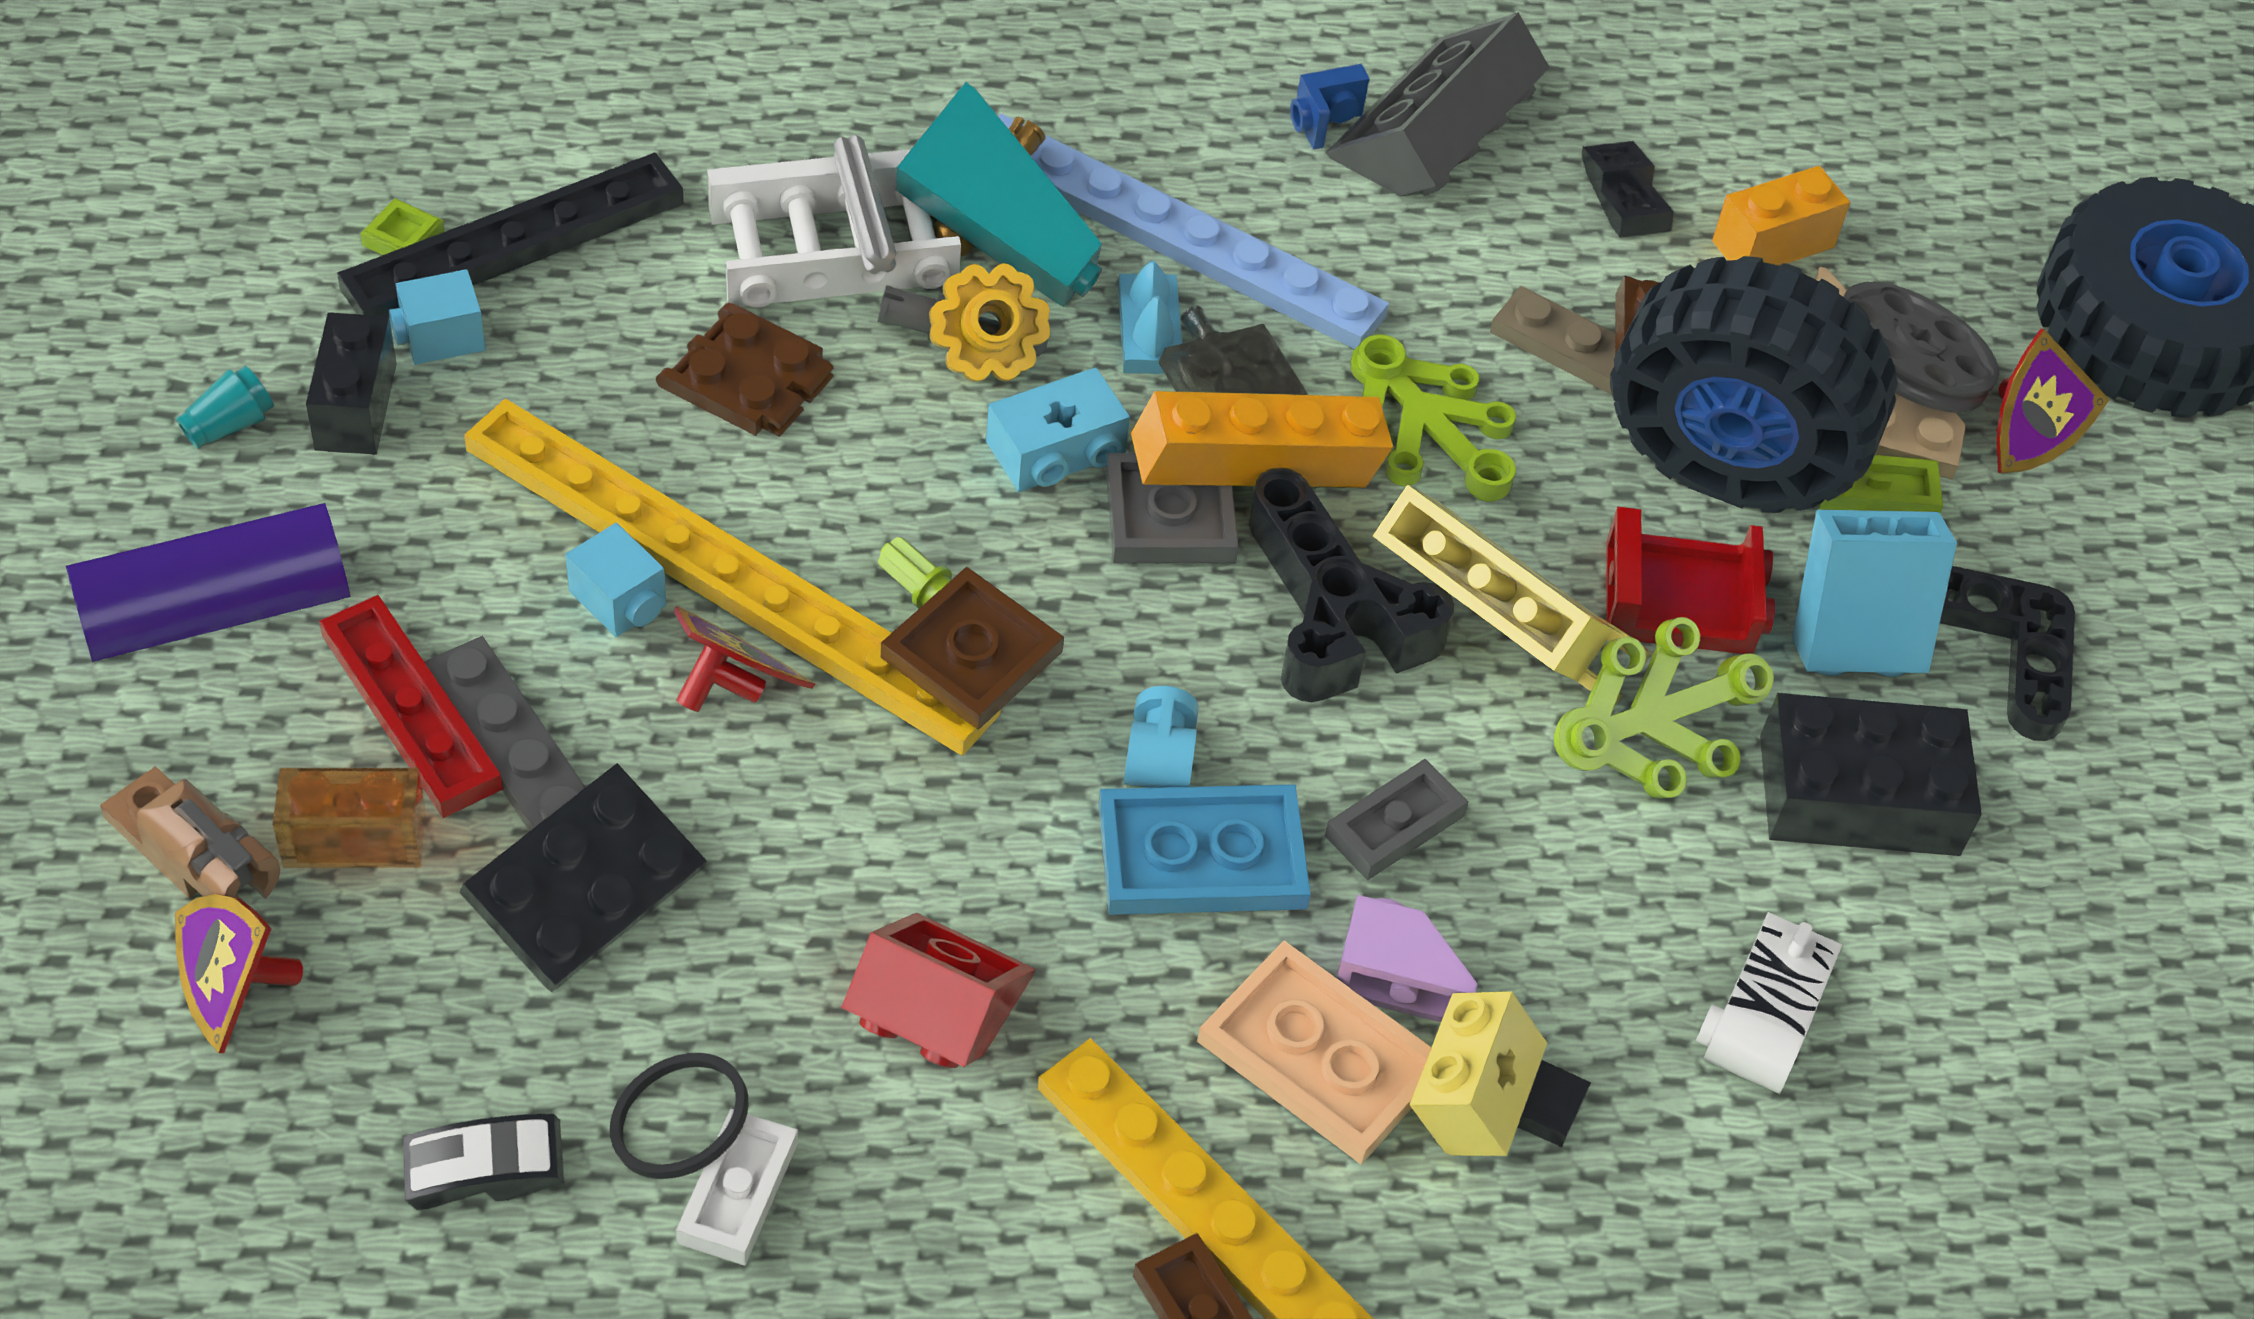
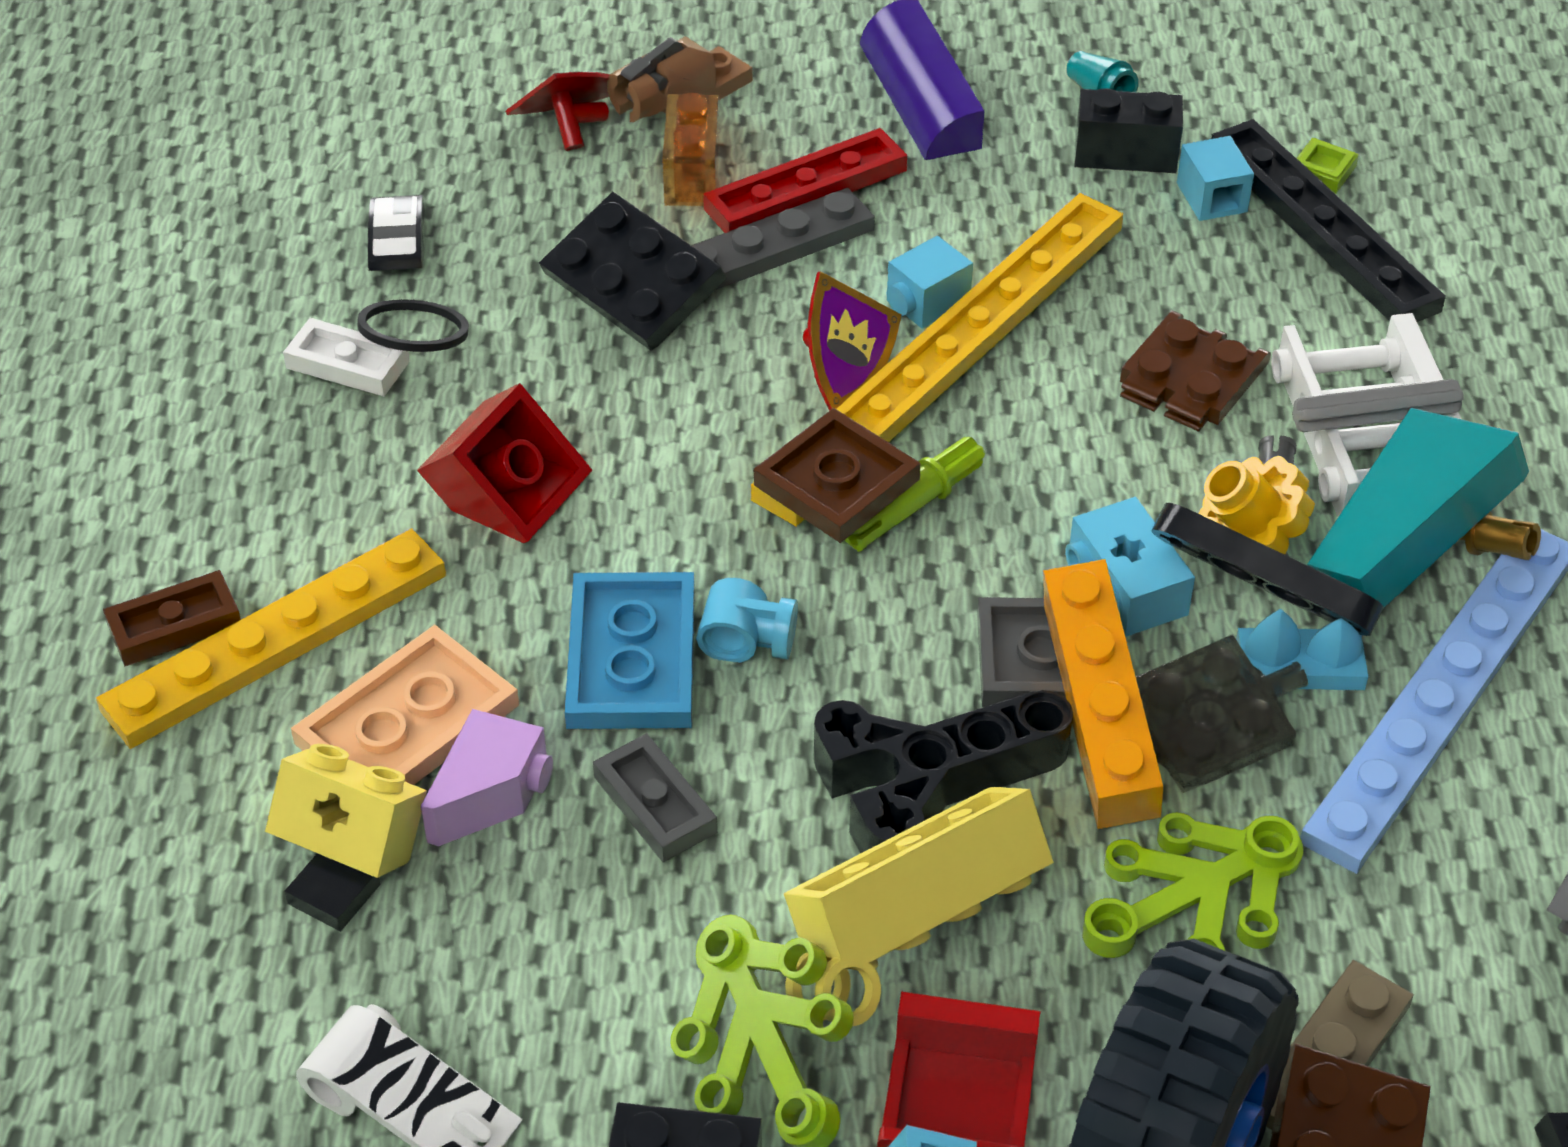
camera: 100 degrees right, 5 degrees down
(1095, 308) = (1266, 568): none -> black beam

